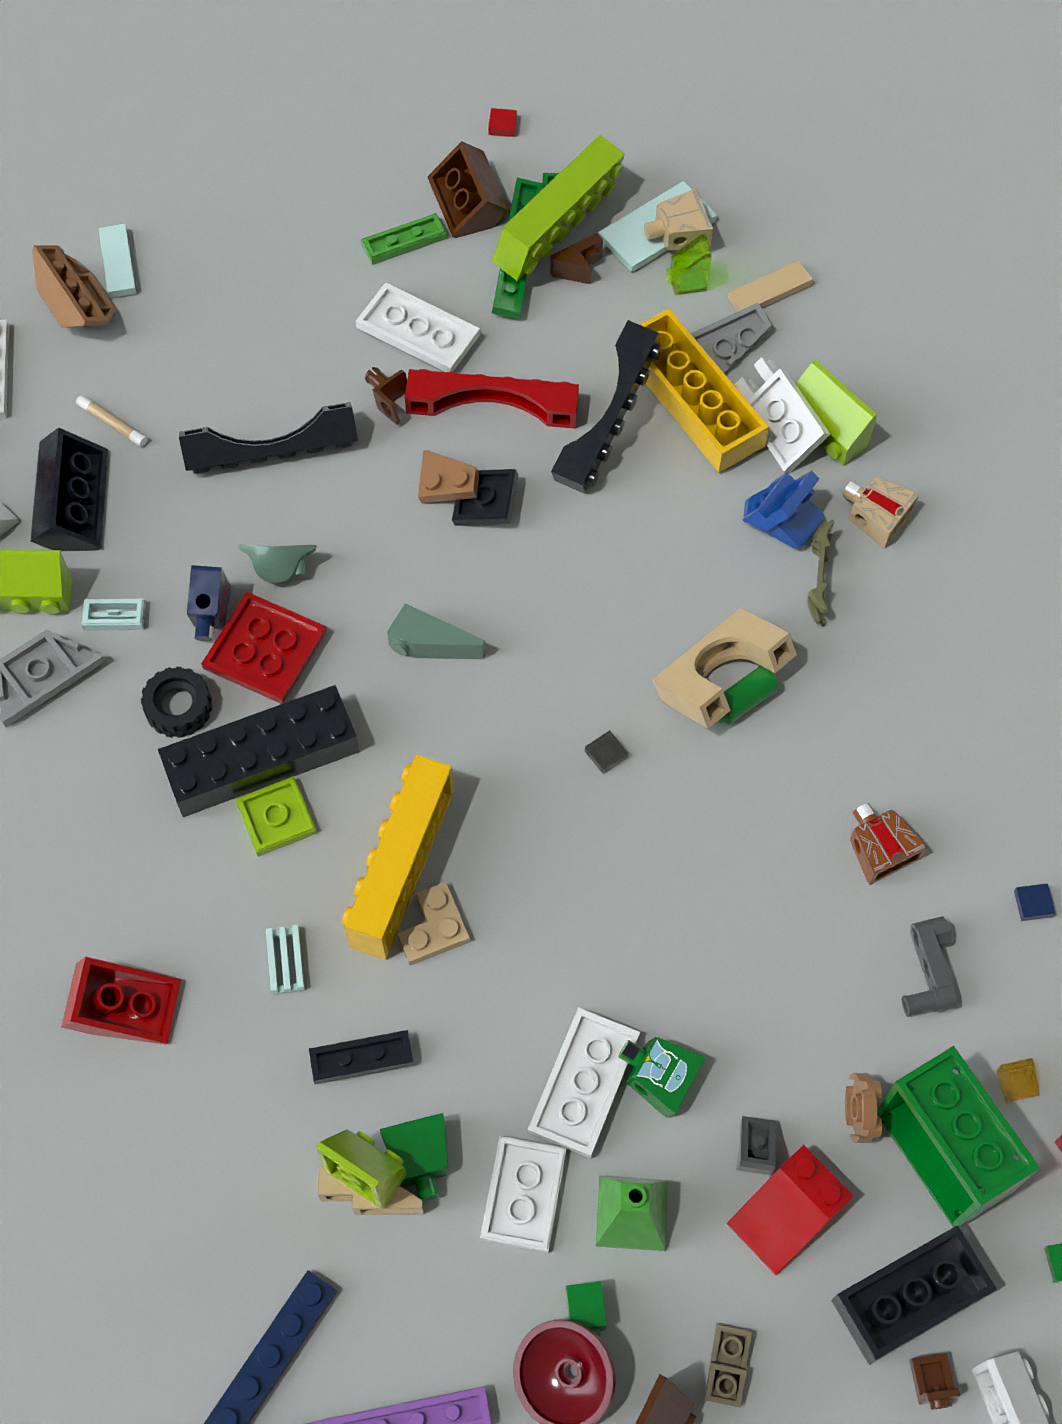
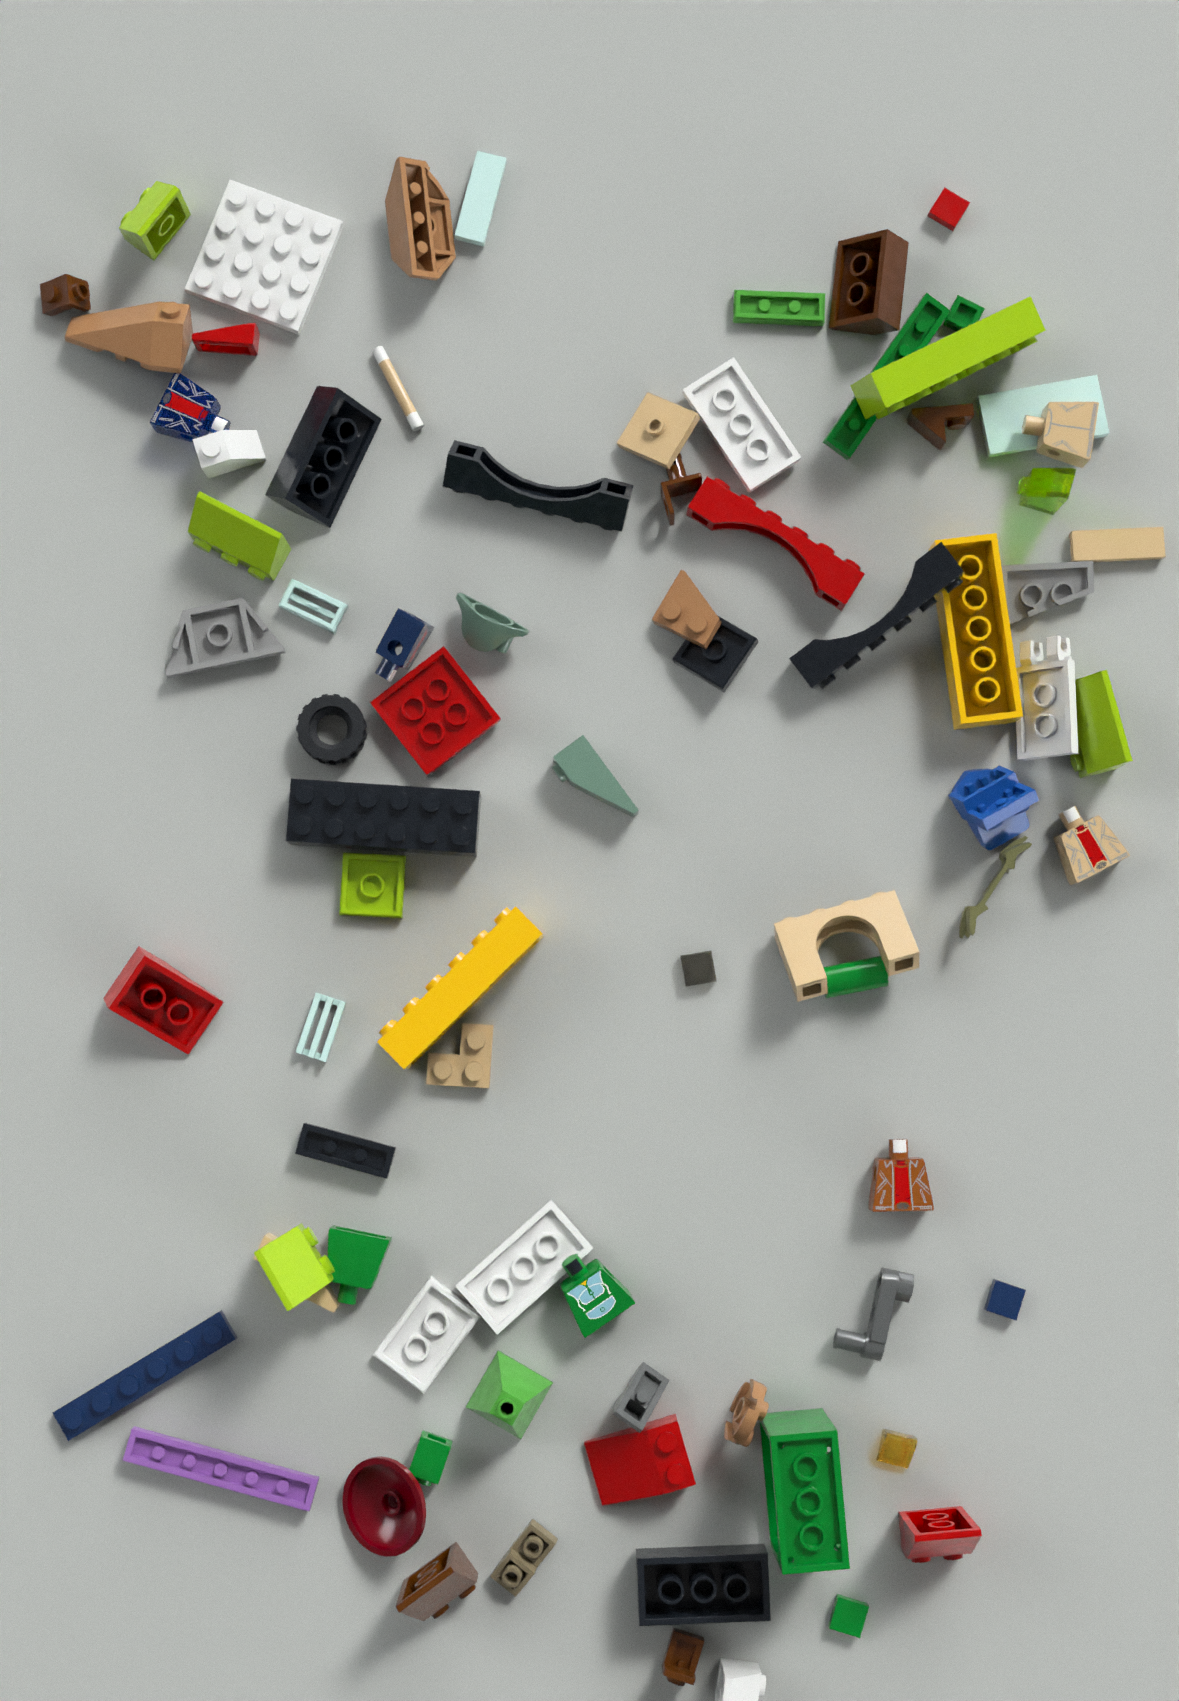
camera: 20 degrees right, 20 degrees up
(350, 358) = (658, 430): none -> tan plate

